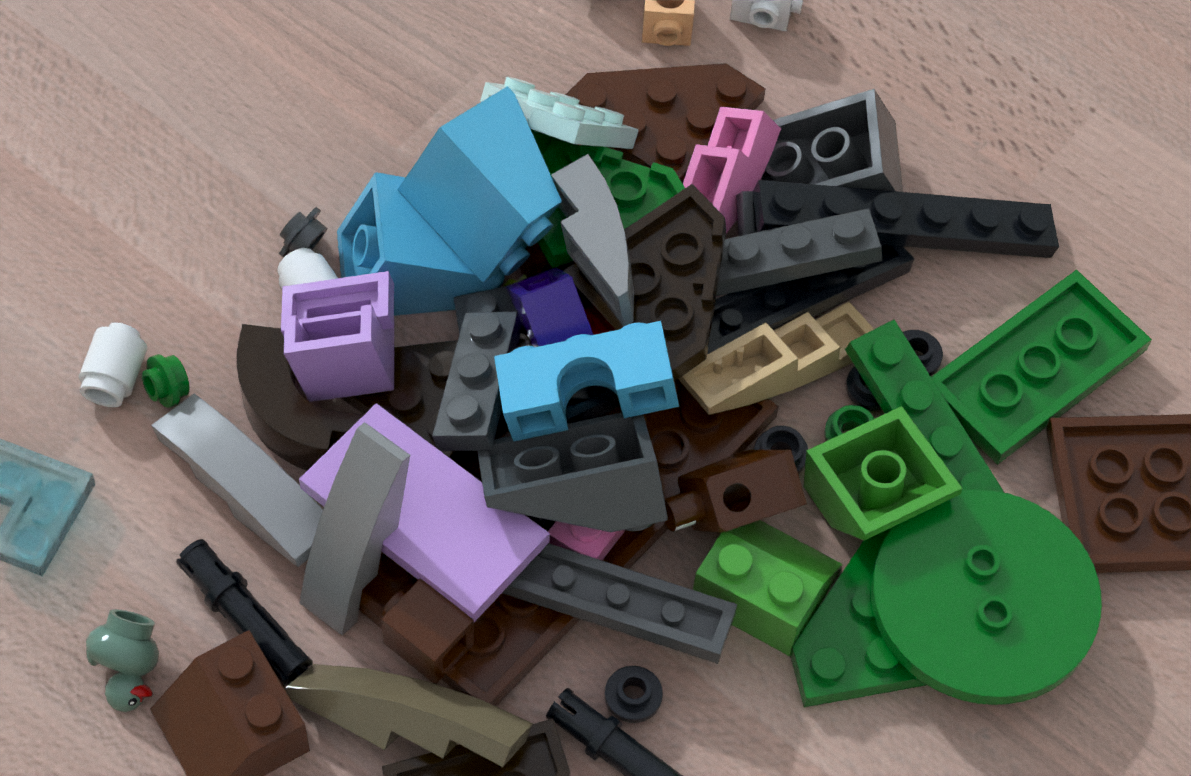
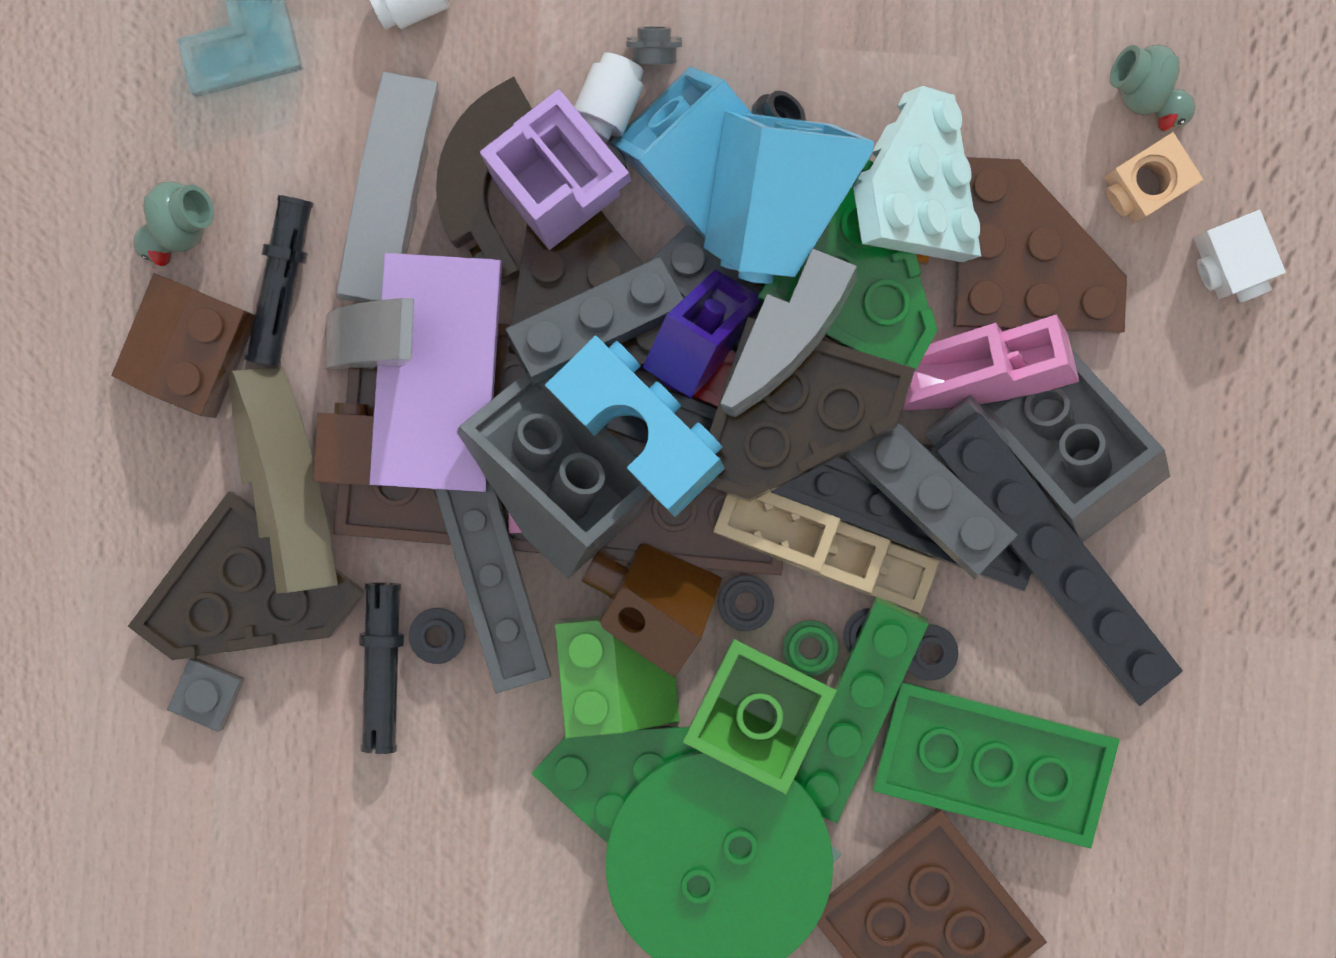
camera: 55 degrees right, 30 degrees up
(165, 380) = (429, 48): green plate -> none

